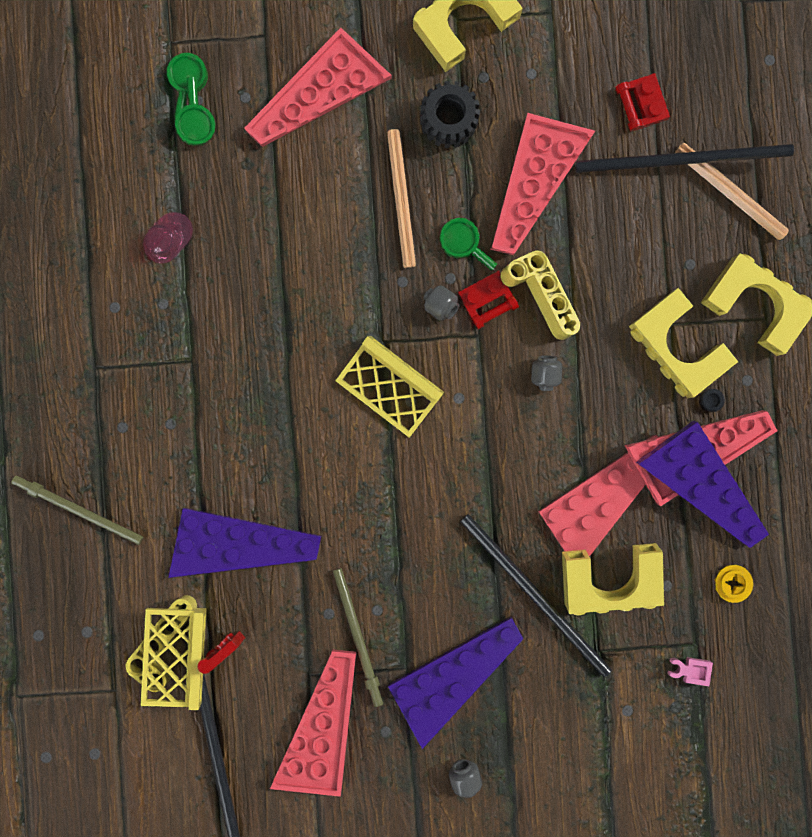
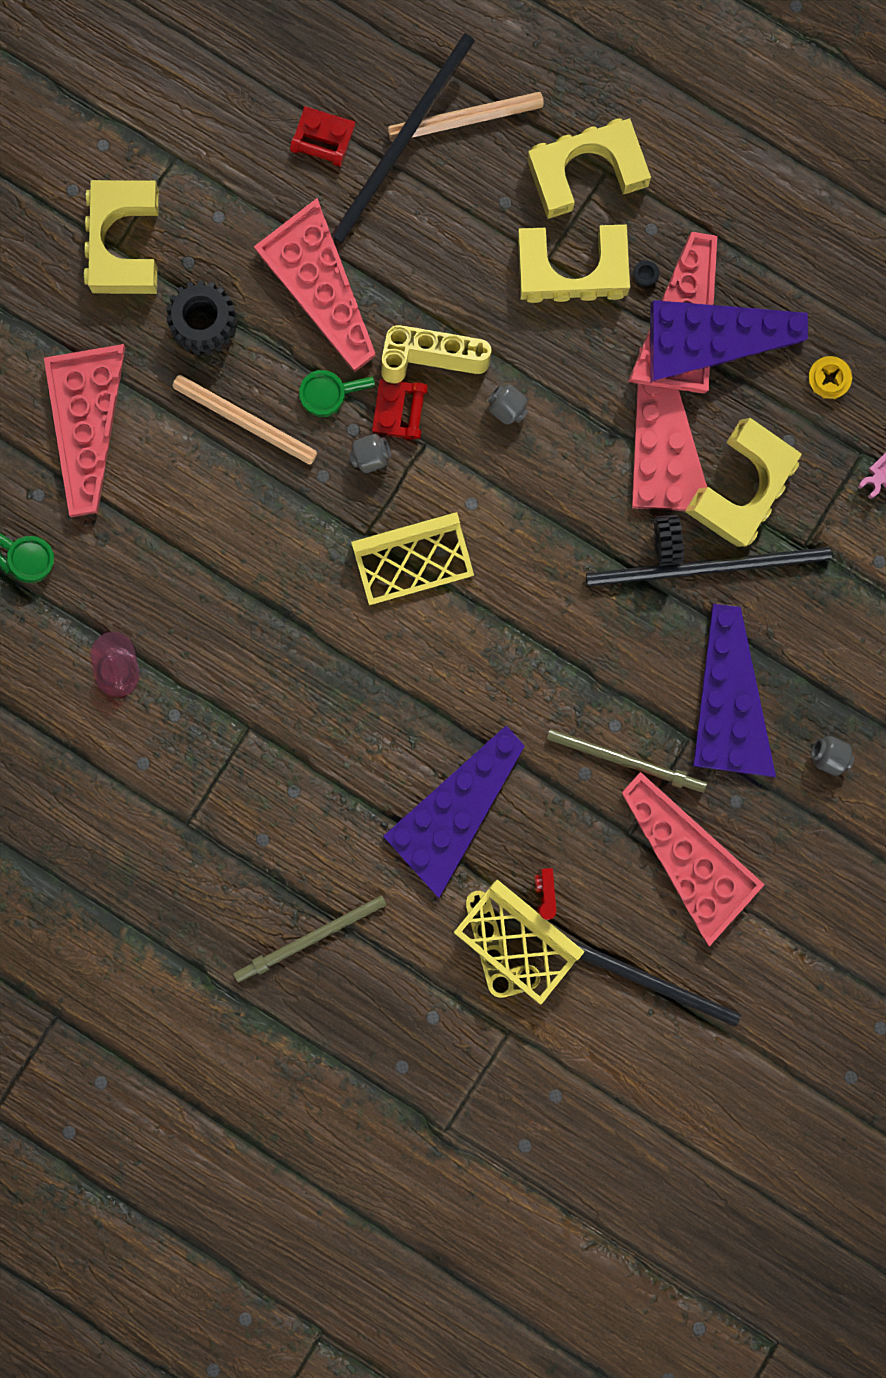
camera: 50 degrees left, 5 degrees down
(532, 556) = (668, 540): none -> black tyre

